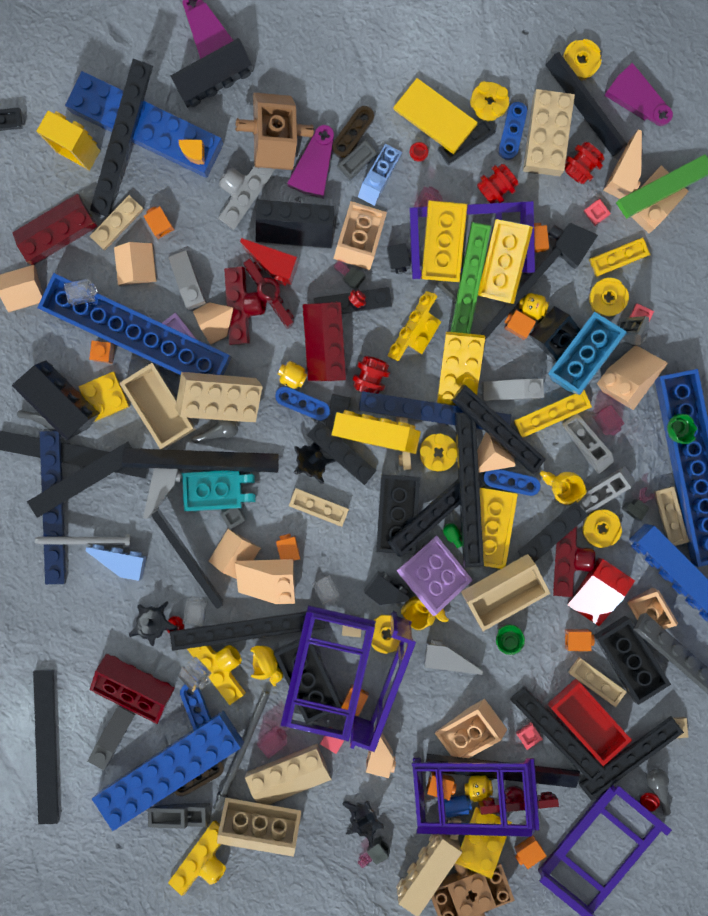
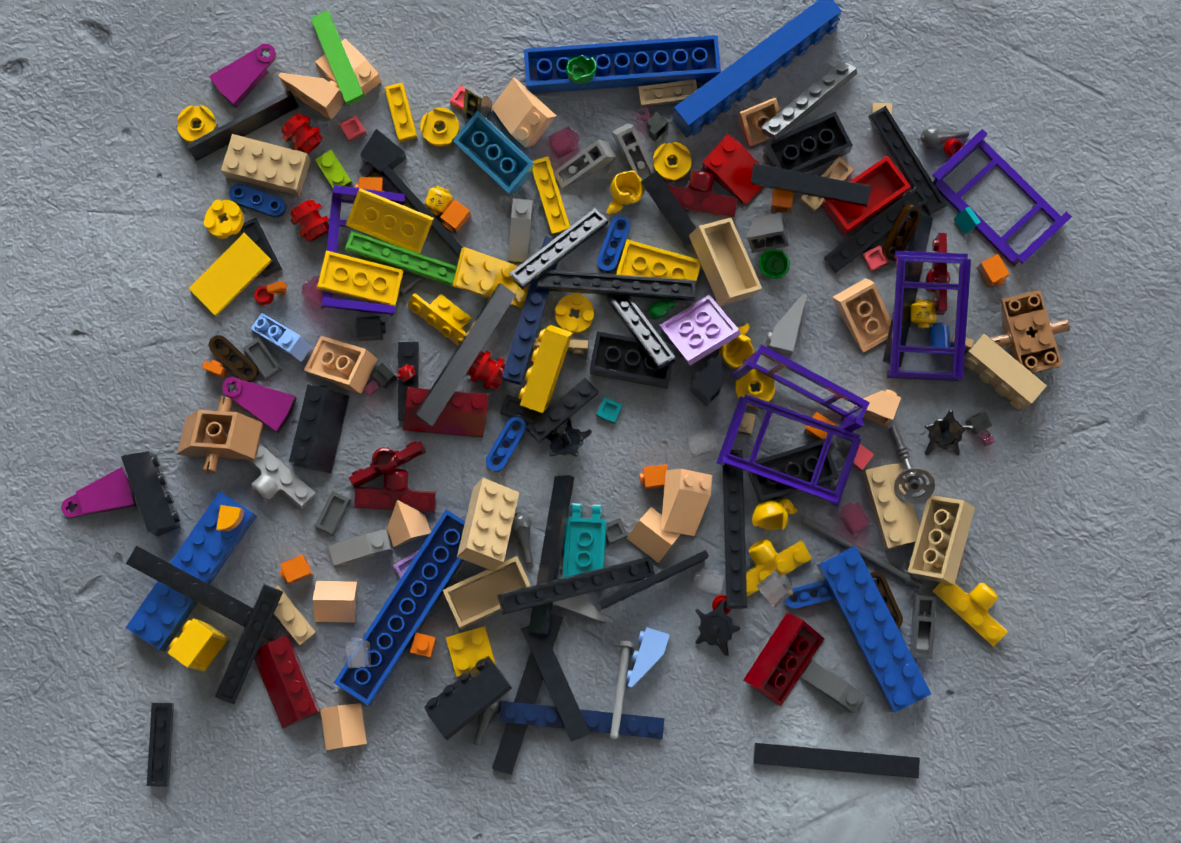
camera: 75 degrees left, 10 degrees down
(82, 188) = (248, 643): none -> black tile
(171, 487) = (575, 585): none -> black tile
(217, 249) = (332, 513): none -> dark grey tile
(276, 263) = (354, 455): red slope -> none
(292, 375) = (475, 450): yellow head -> none
(312, 794) = (912, 477): none -> flat silver dish
(318, 507) = (615, 440): tan plate -> none
(341, 115) = (214, 368): none -> orange plate
(348, 497) = (609, 410): none -> teal tile
(379, 353) = (465, 355): none -> black tile
(426, 163) = (277, 288): none -> orange tile
(448, 785) = (916, 359): orange brick -> none
(479, 851) = (983, 316): yellow plate -> none
(492, 455) = (583, 258): light nougat slope -> none
(540, 630) = (767, 232): none -> dark grey torso
(552, 199) = (333, 169): none -> lime plate
(555, 333) = (469, 182): black slope -> none
(557, 760) = (907, 225): none -> dark brown plate
(577, 822) = (967, 220): none -> teal tile
(591, 668) = (810, 185): none -> black tile

